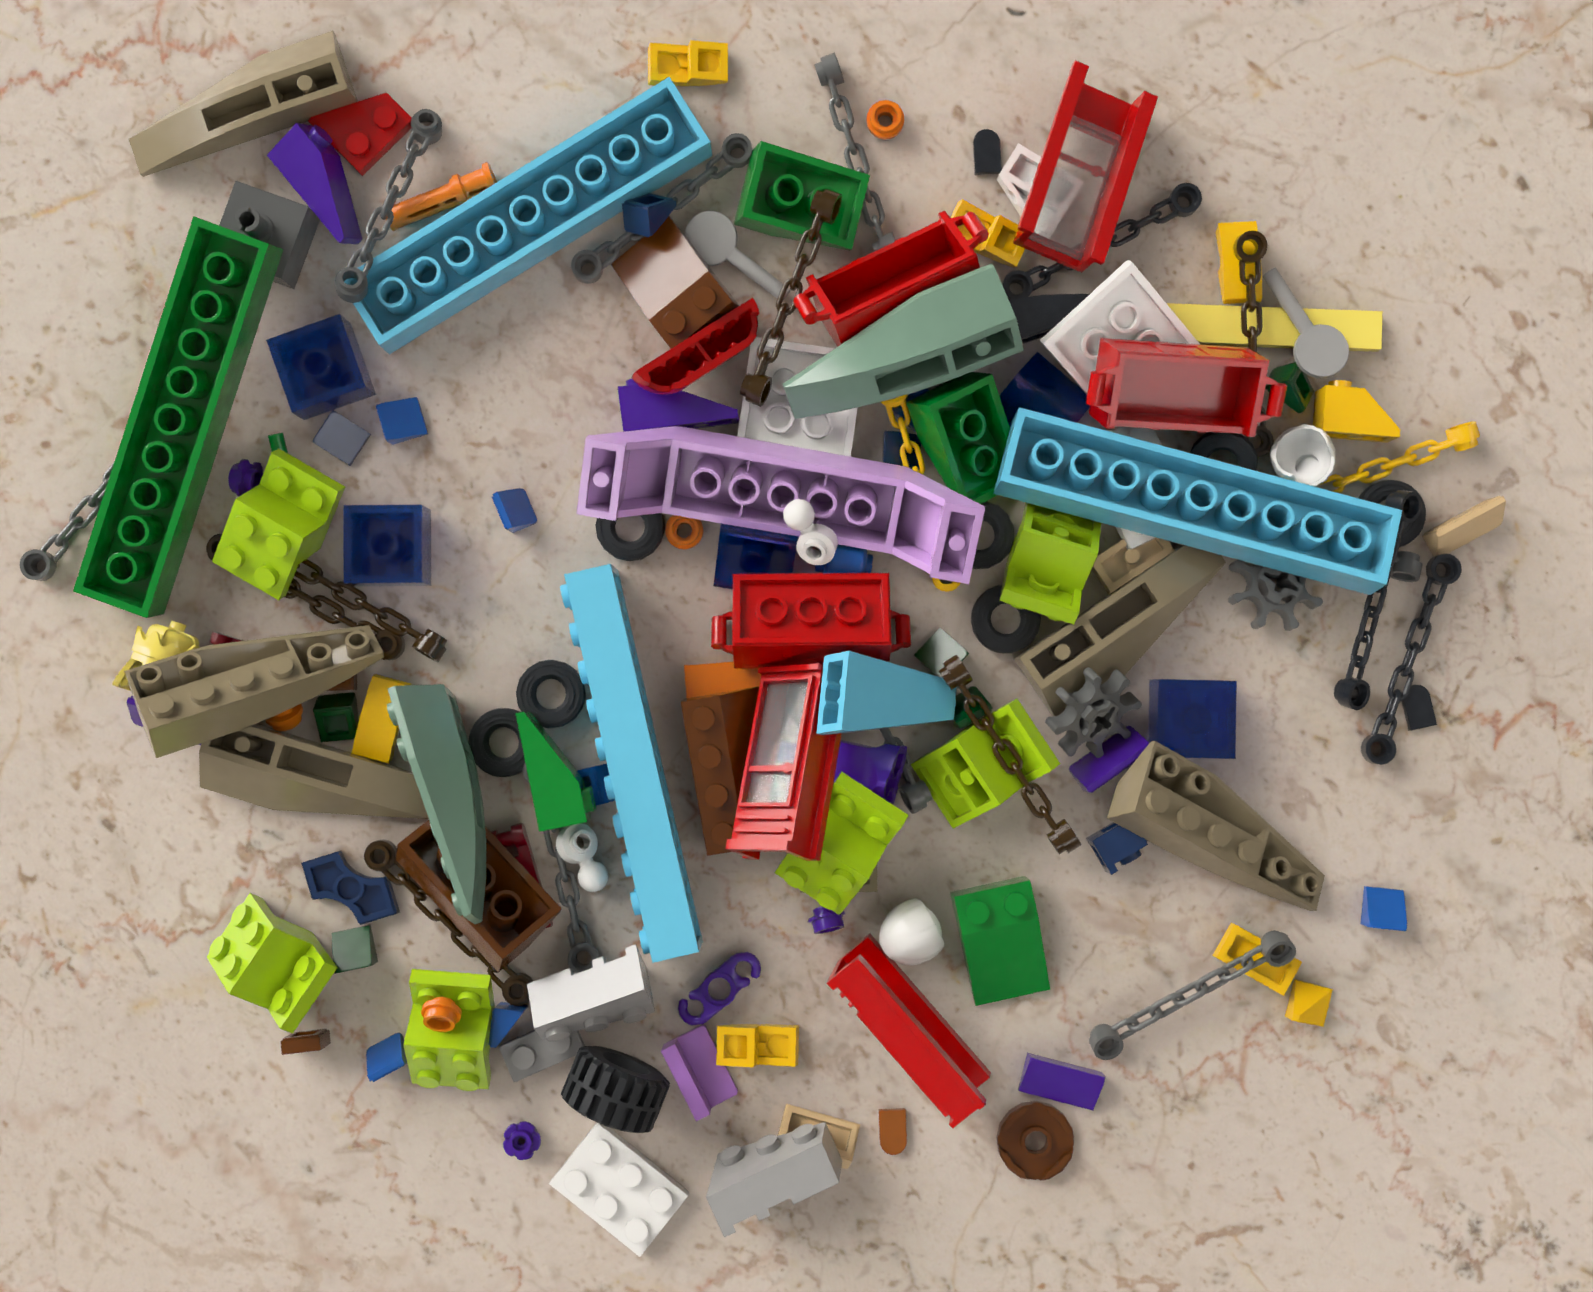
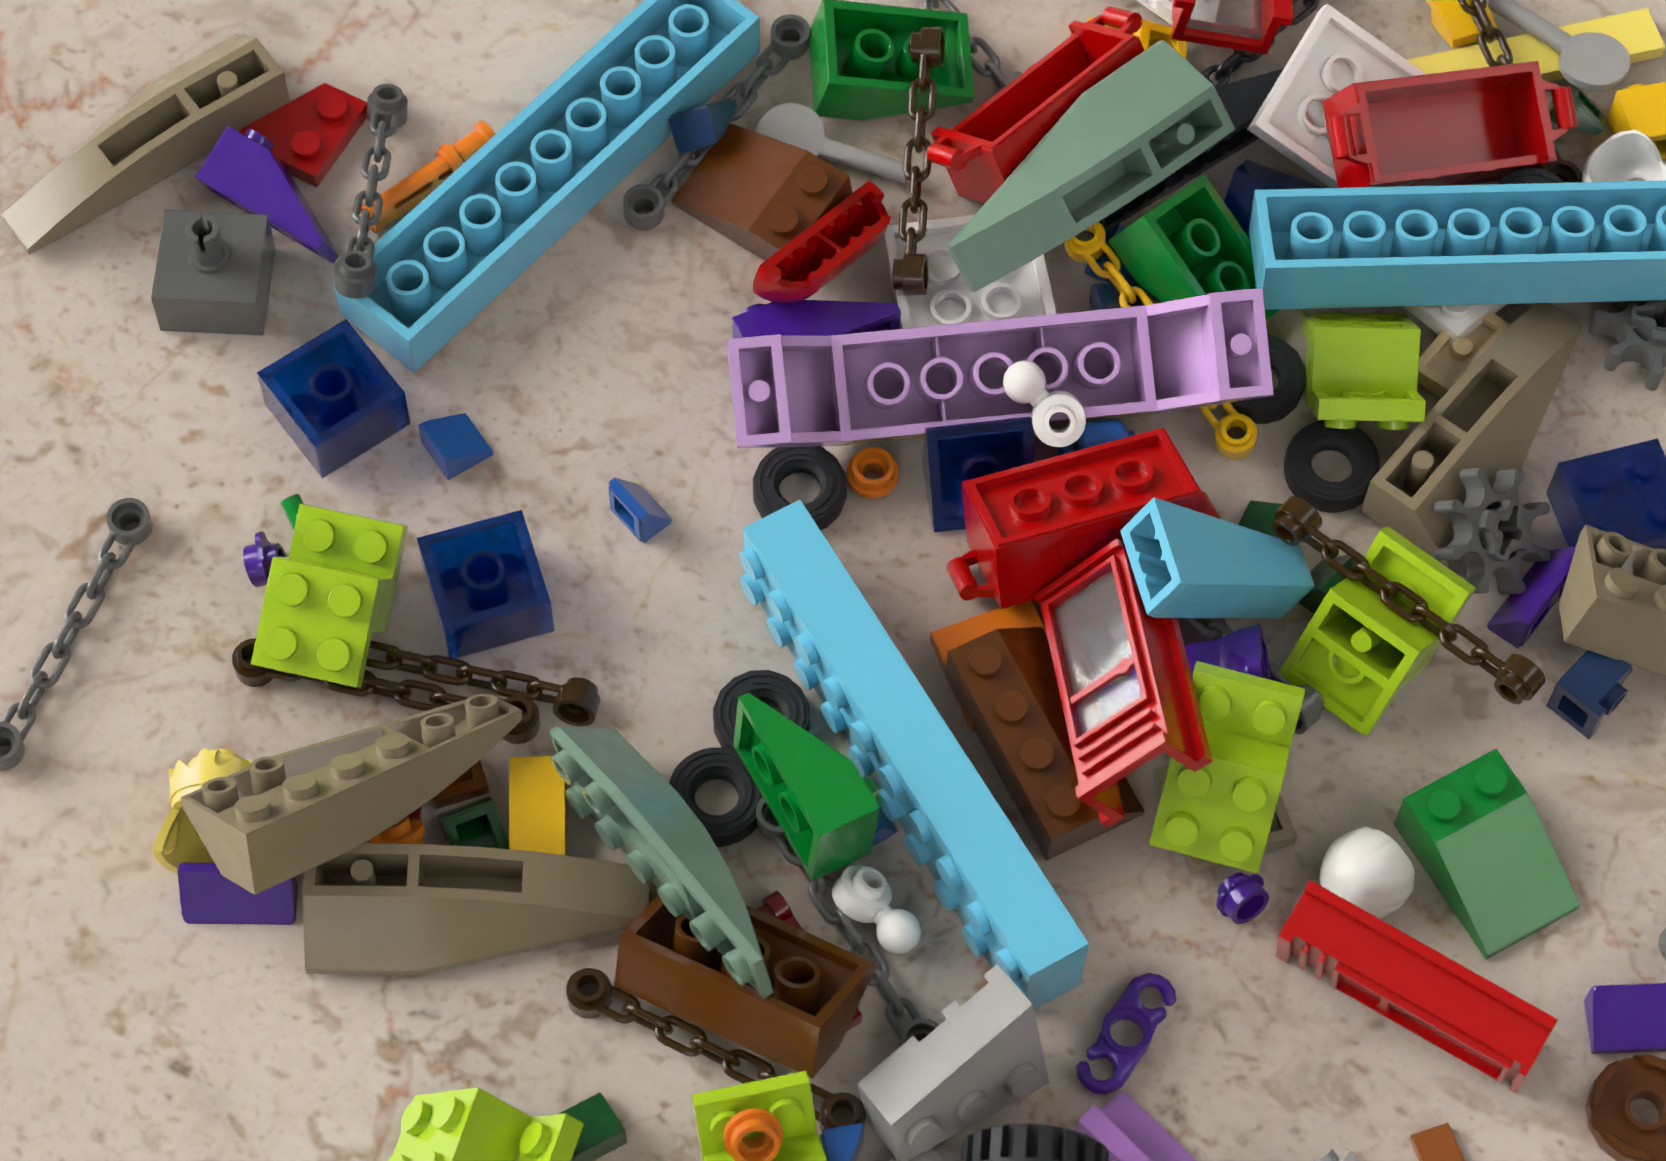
camera: 15 degrees left, 25 degrees down
(177, 418) = (163, 500): green brick -> none
(341, 437) = (379, 484): slope -> none
(364, 895) = (583, 1053): dark blue tile -> none
(757, 1045) = (1208, 1094): yellow slope -> none

